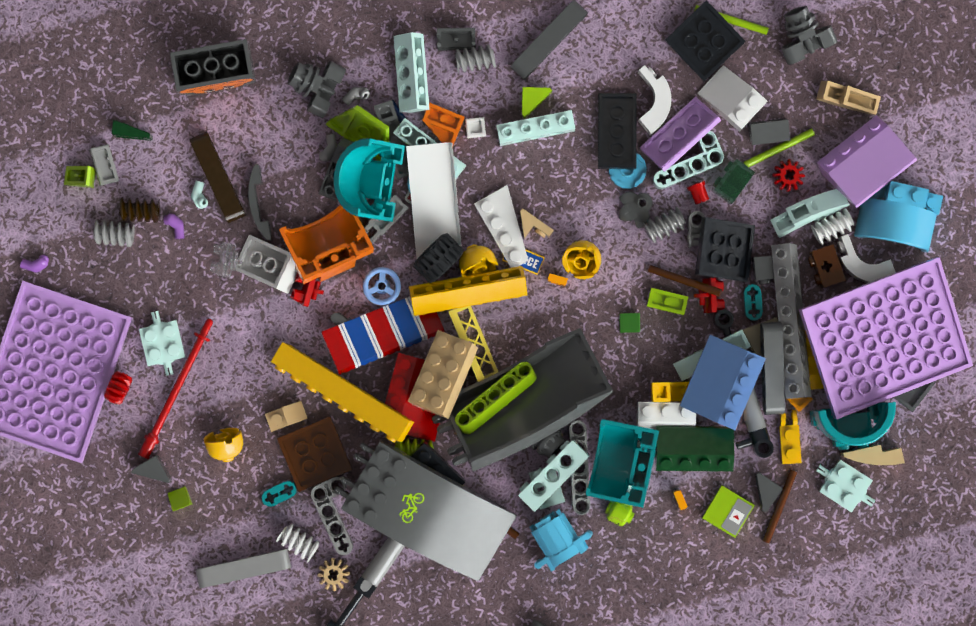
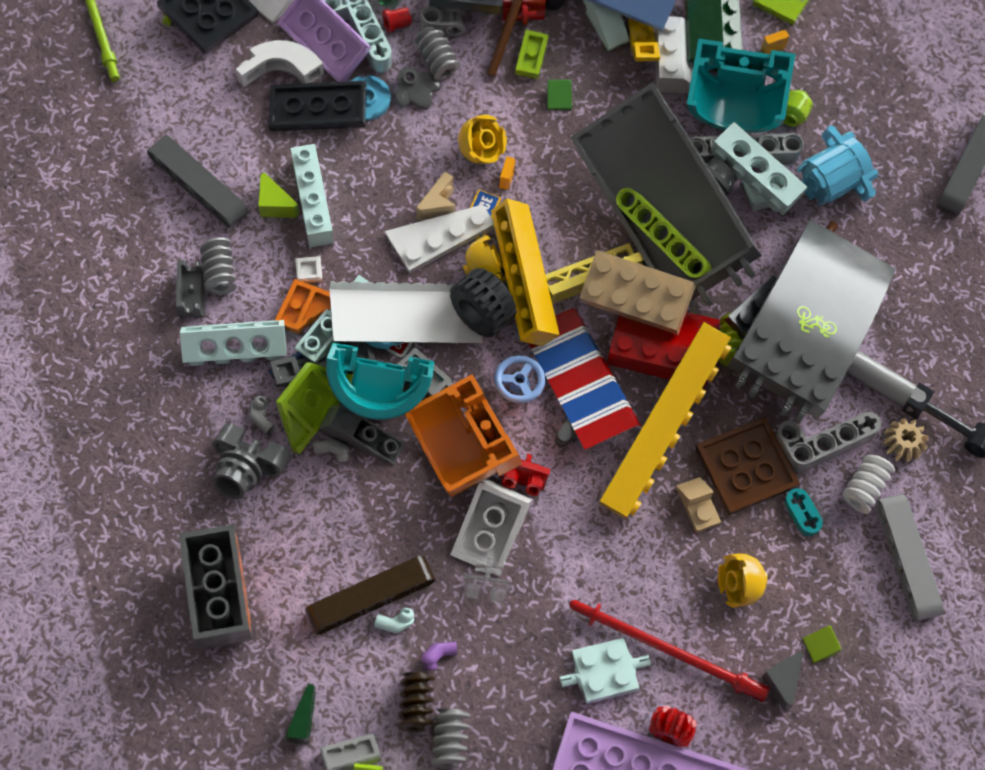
camera: 95 degrees left, 20 degrees down
(255, 180) = (373, 543): dark grey slope -> none

